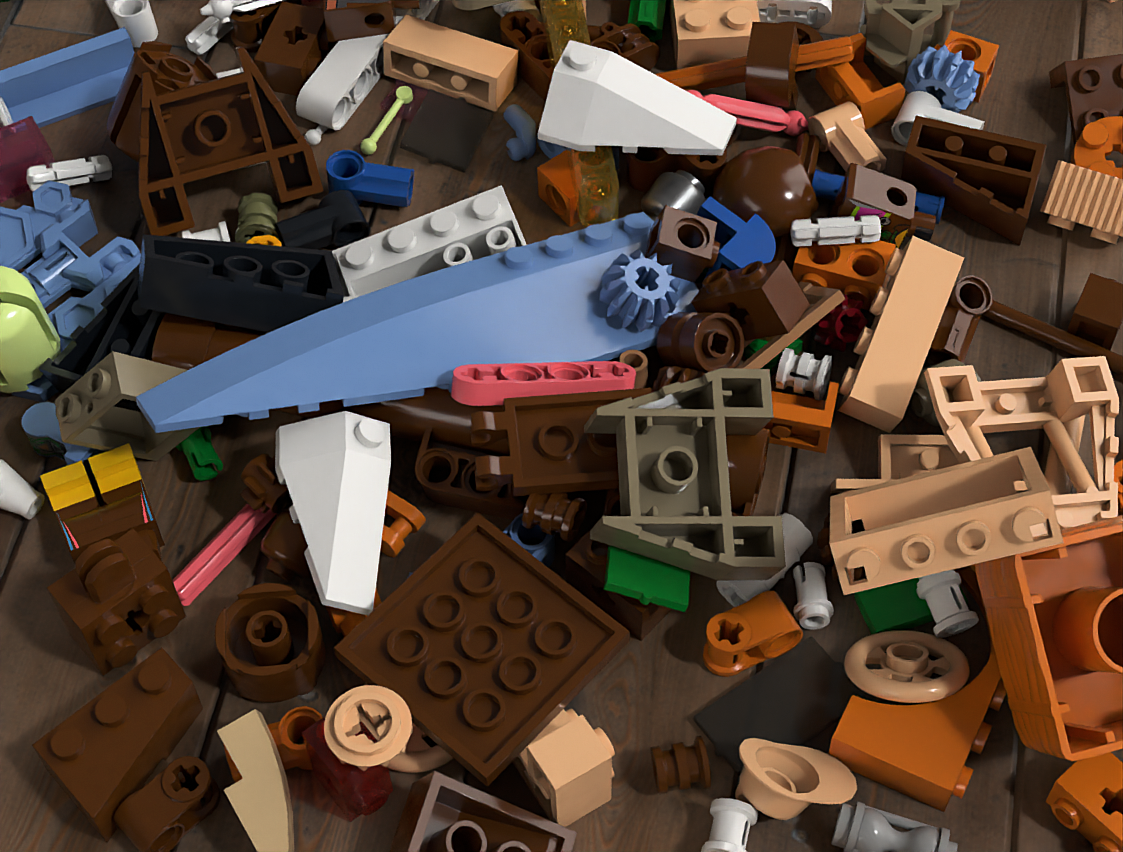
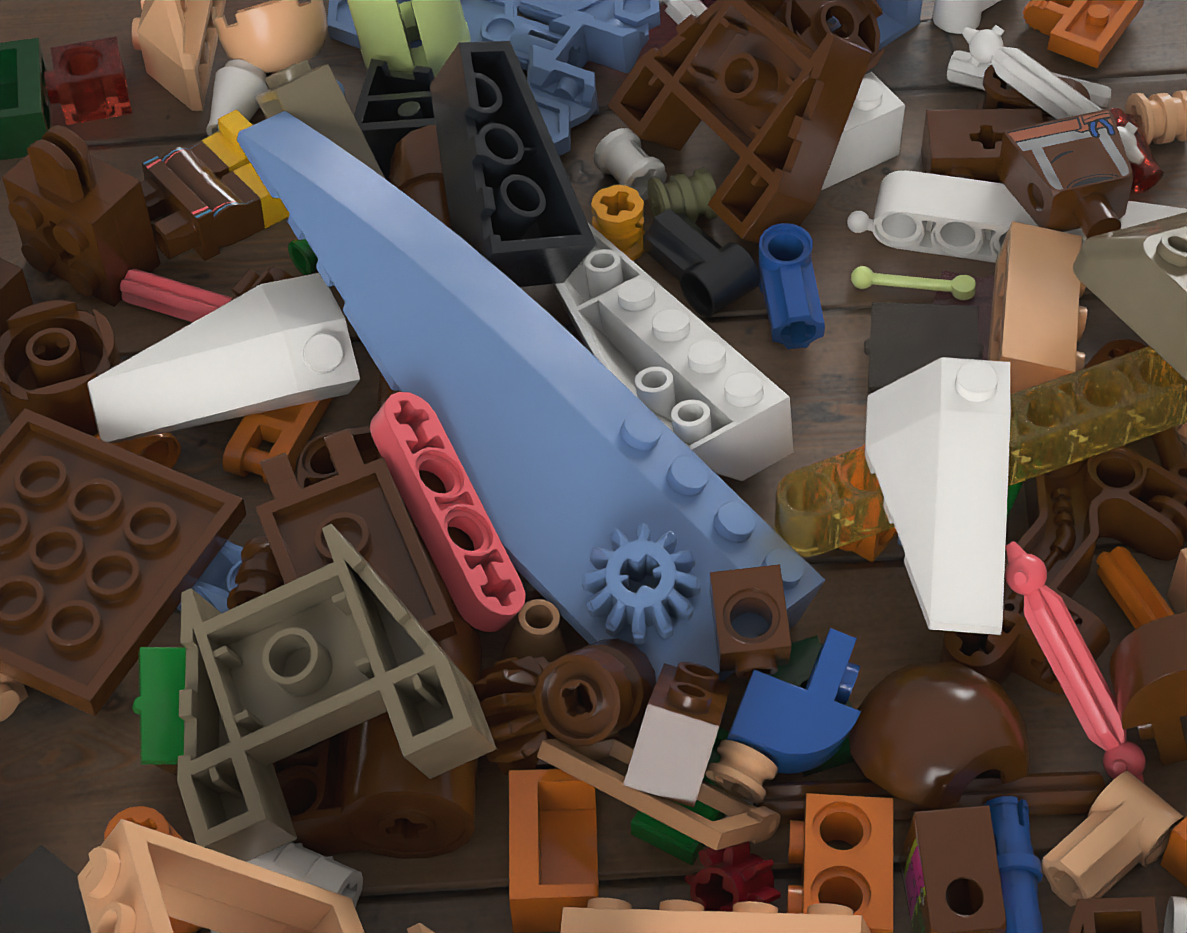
camera: 75 degrees right, 5 degrees down
(674, 190) = (887, 629): flat silver head -> none
(804, 373) = (629, 860): white bush -> none
(835, 230) = (874, 831): white axle -> none

